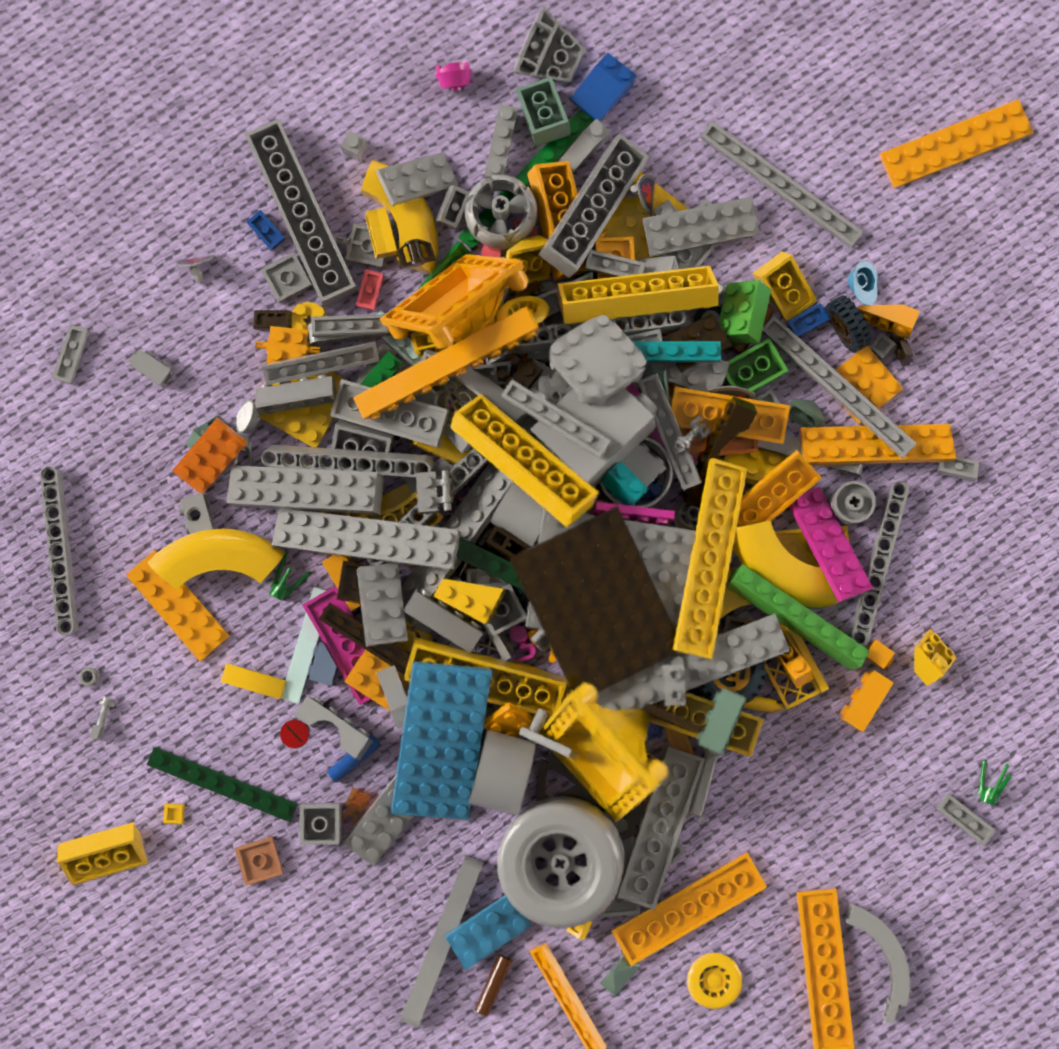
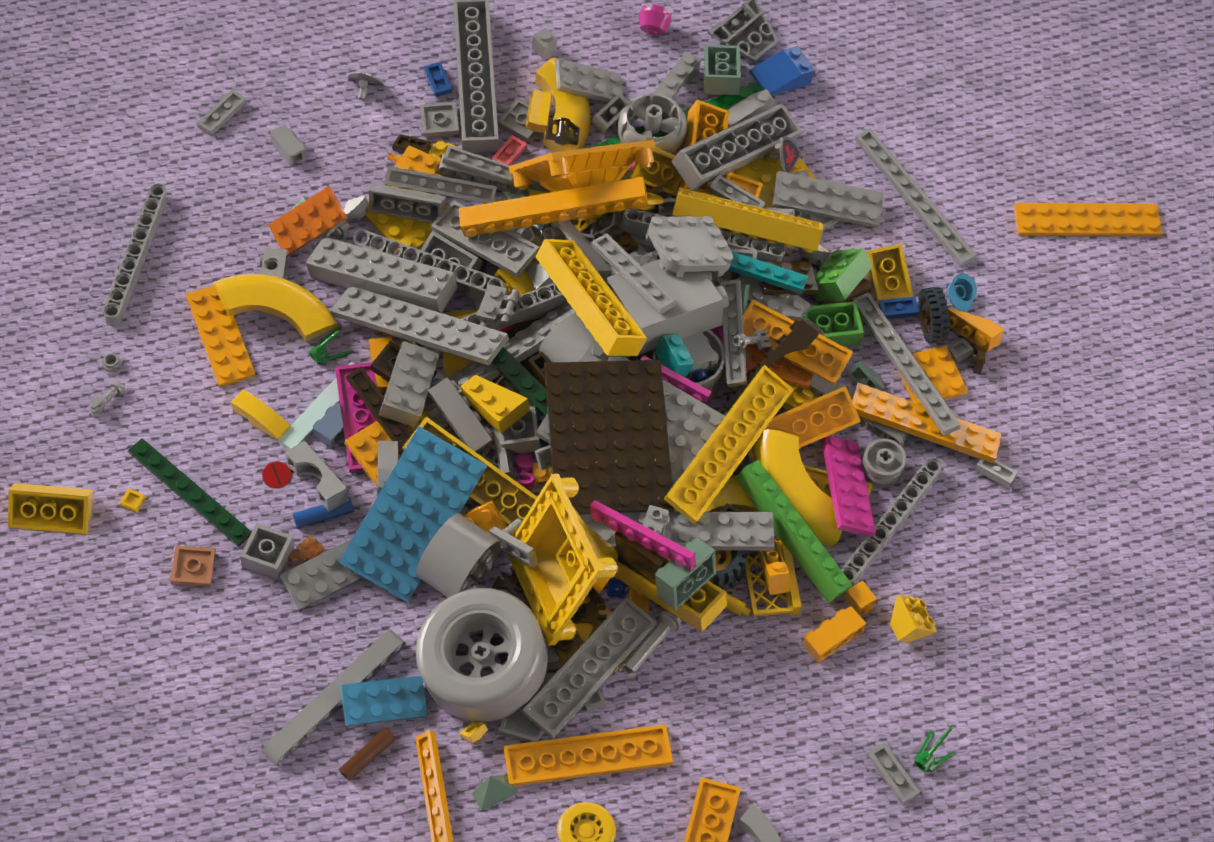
camera: 10 degrees right, 25 degrees down
(680, 712) = (643, 535): none -> dark pink plate

